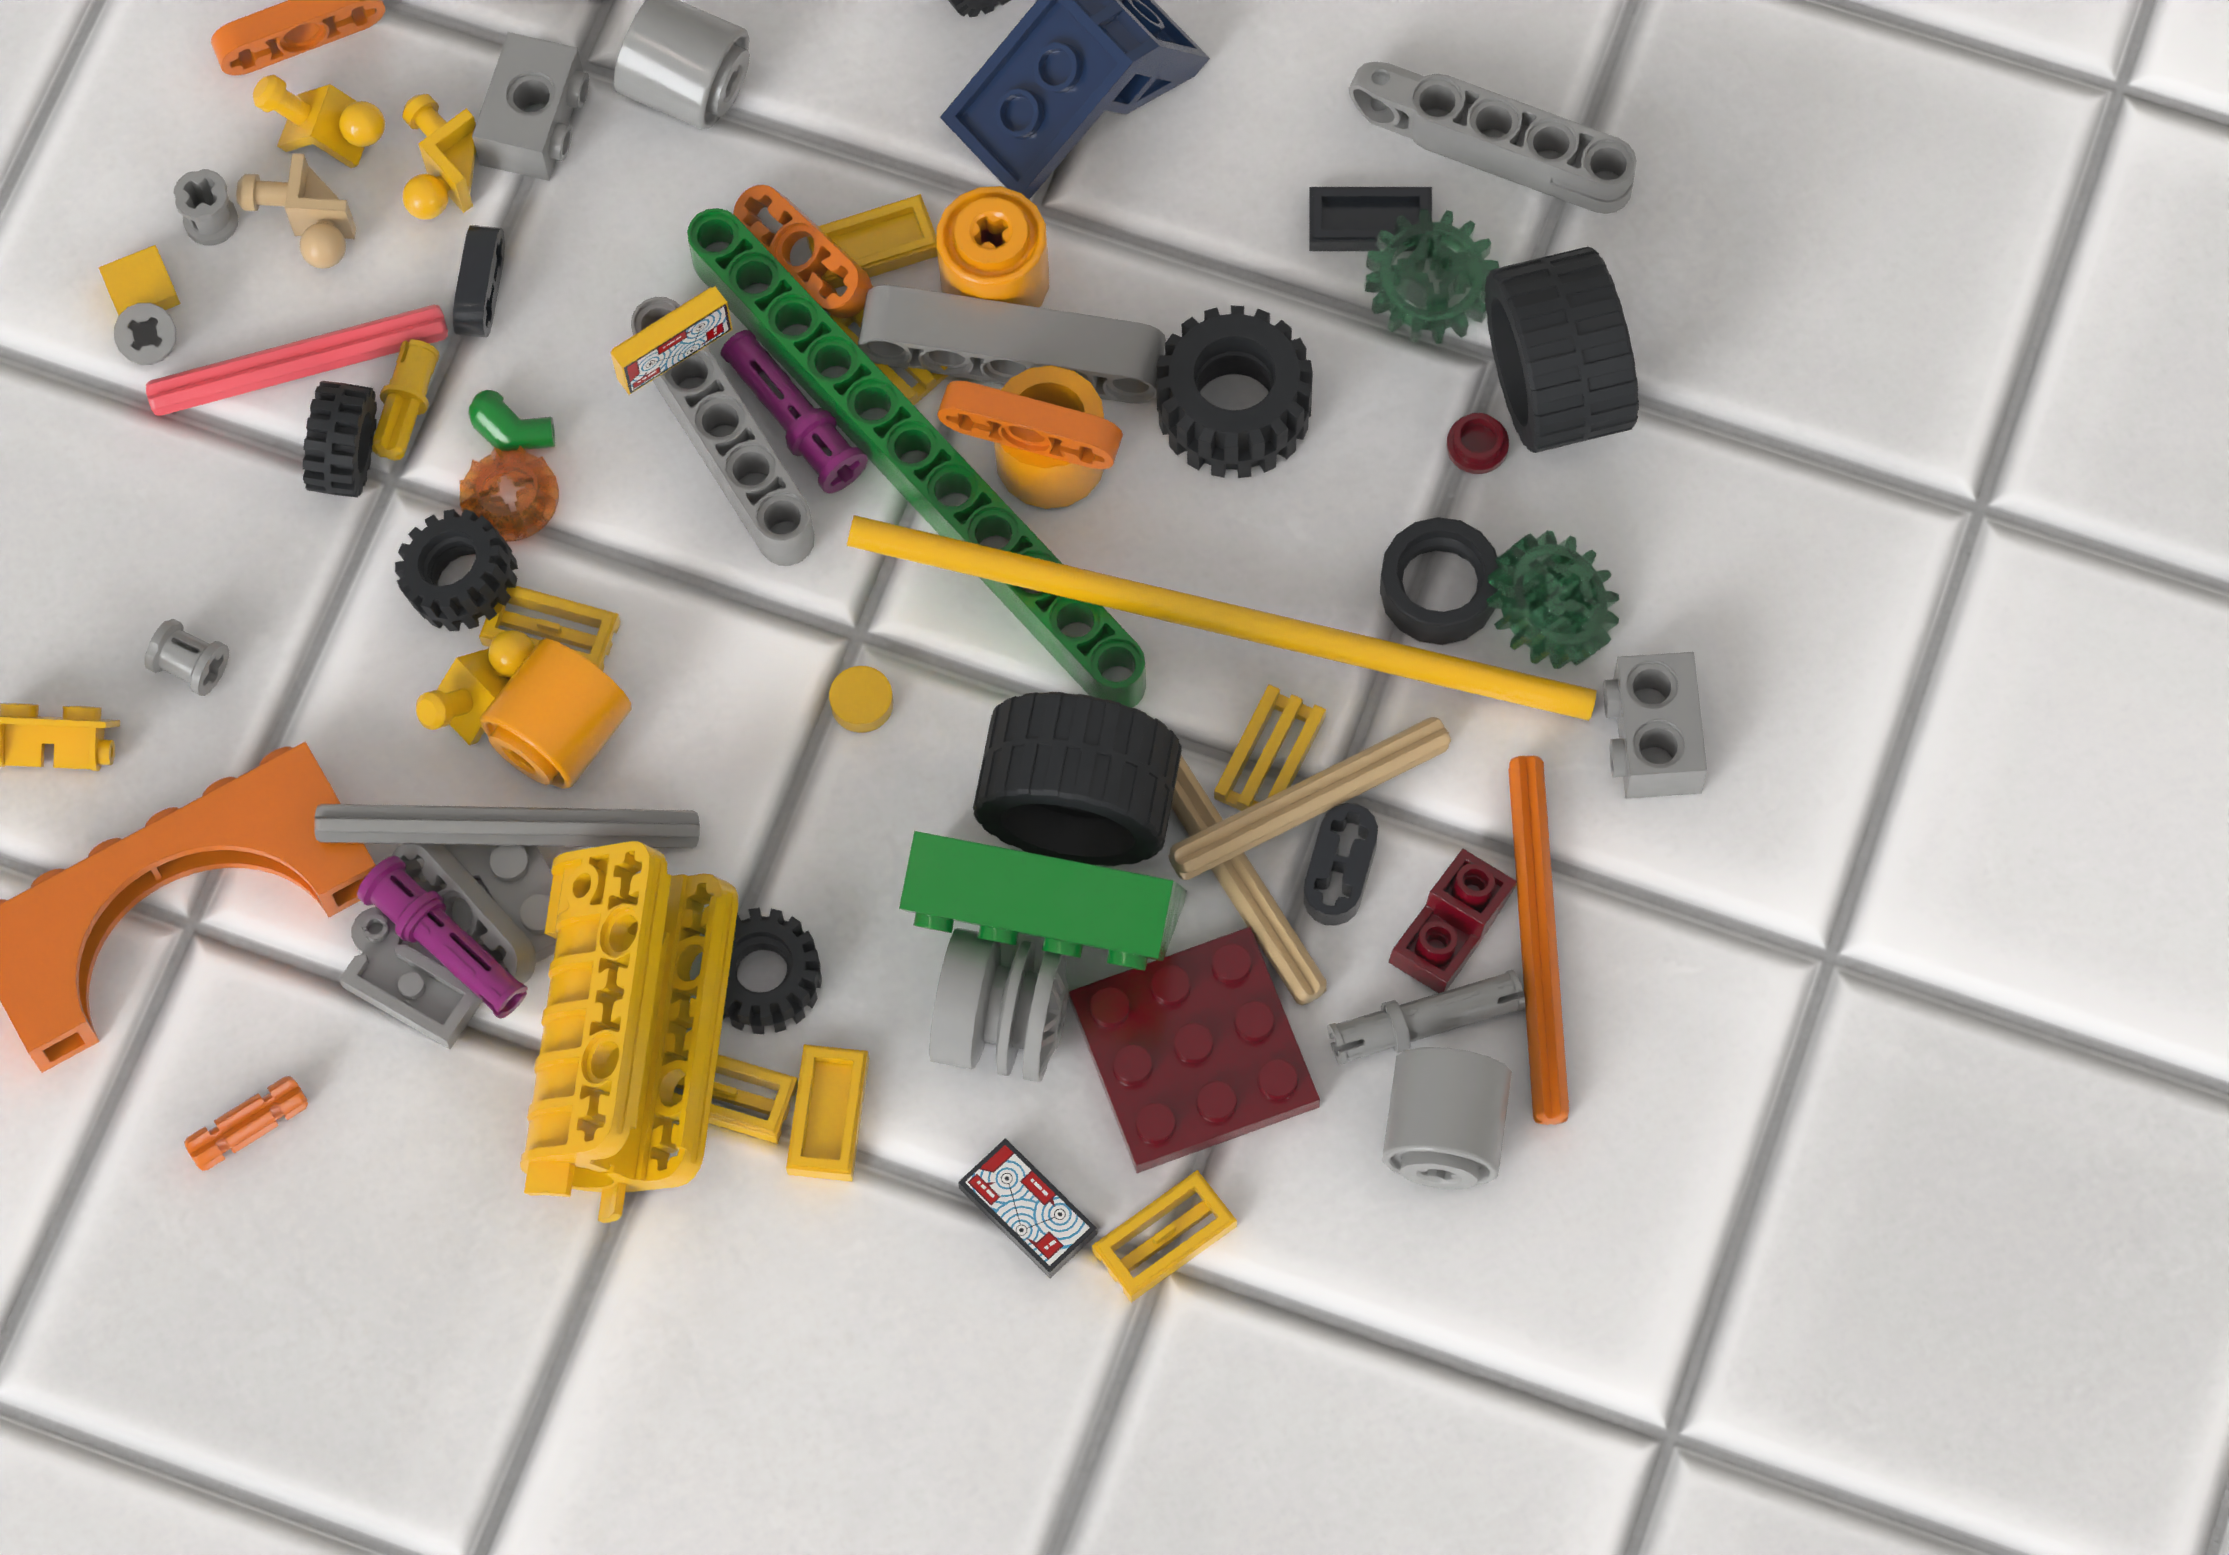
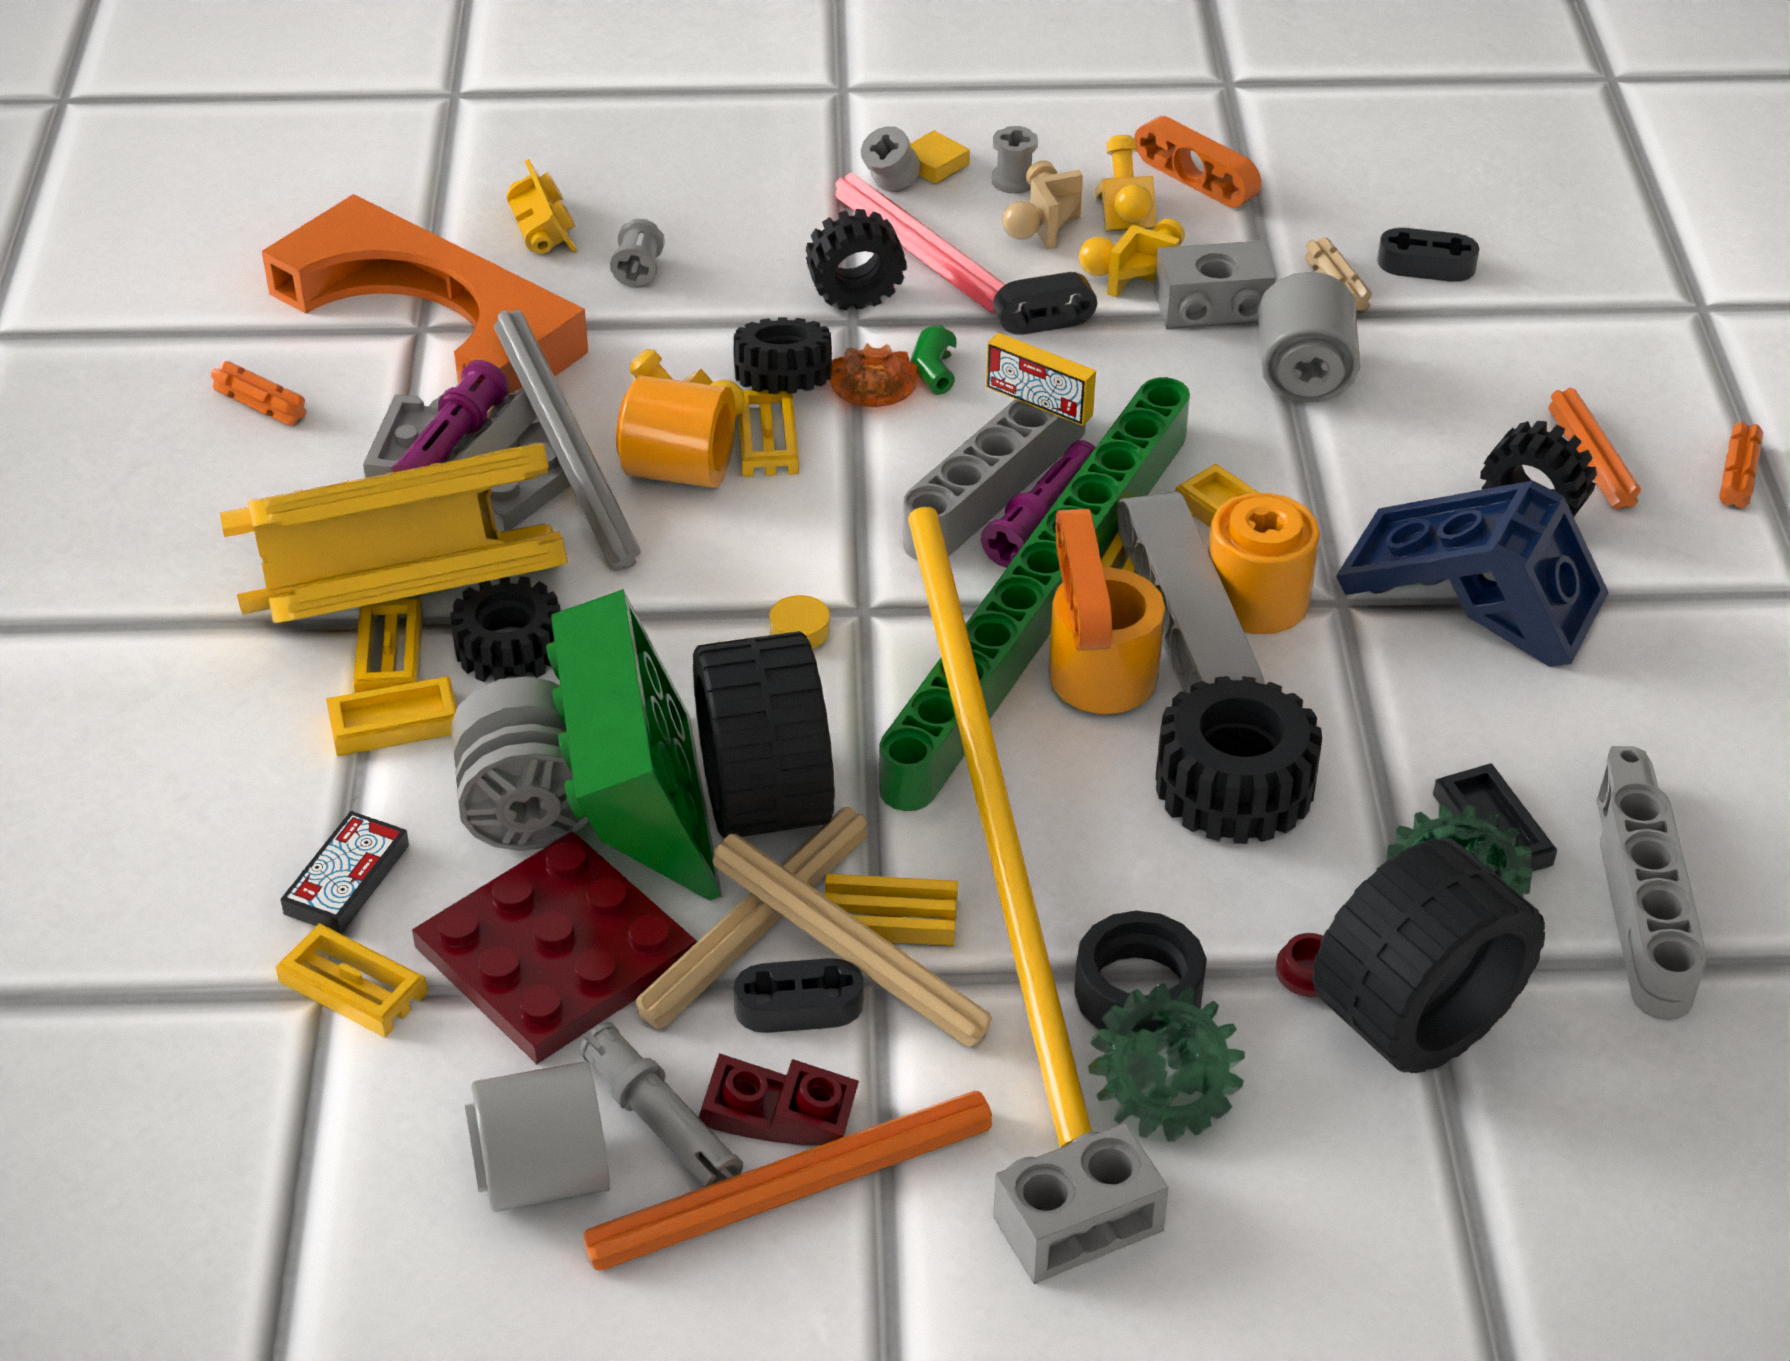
camera: 65 degrees right, 25 degrees down
(404, 398) = (918, 297): yellow axle -> none
(824, 257) = (1192, 456): orange beam -> none

